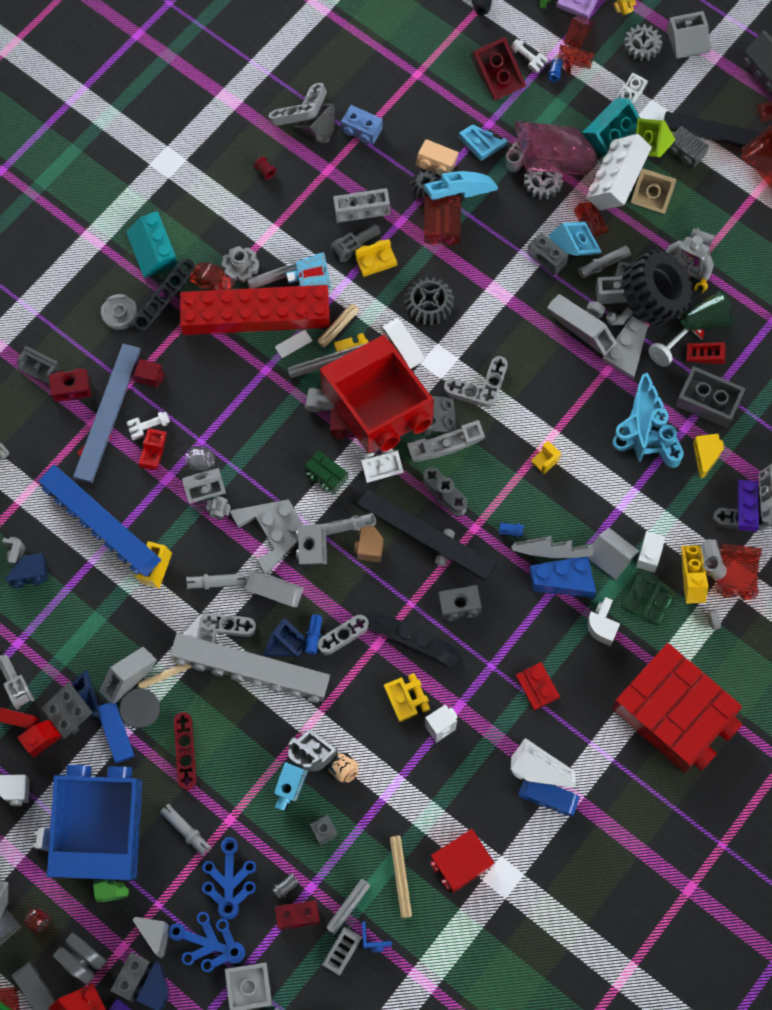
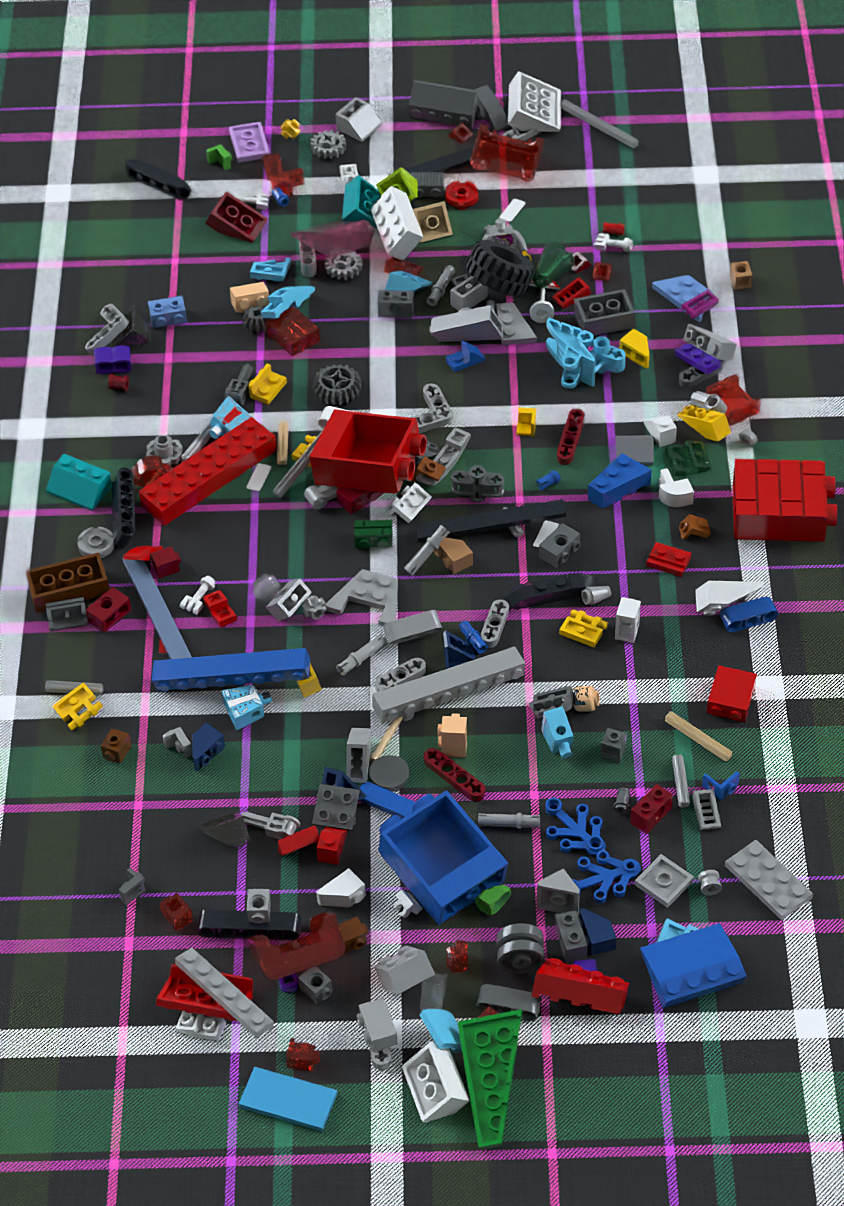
camera: 40 degrees left, 20 degrees down
(60, 336) = (67, 581): none -> reddish brown brick
(89, 557) = (245, 705): none -> medium azure torso
(135, 351) = (141, 552): none -> red slope
(209, 719) = (453, 735): none -> light nougat brick
(279, 141) = (112, 359): none -> dark purple brick
(318, 553) = (407, 570): light grey brick -> none
(361, 205) = (222, 357): light grey brick -> none
(422, 446) = (430, 469): none -> dark orange bracket
(444, 673) = (593, 595): none -> light grey cone
(461, 580) = (546, 529): none -> white sticker
(546, 548) = (589, 470): light grey slope -> none
(560, 352) = (465, 358): none -> blue slope
(570, 499) = (570, 436): none -> dark red beam
(586, 673) = (694, 525): none -> dark orange bracket
(705, 186) = (456, 188): none -> red plate
(740, 224) = (512, 210): none -> white sticker
(744, 324) = (581, 263): none -> dark red slope
(754, 349) = (602, 271): none -> clear red slope

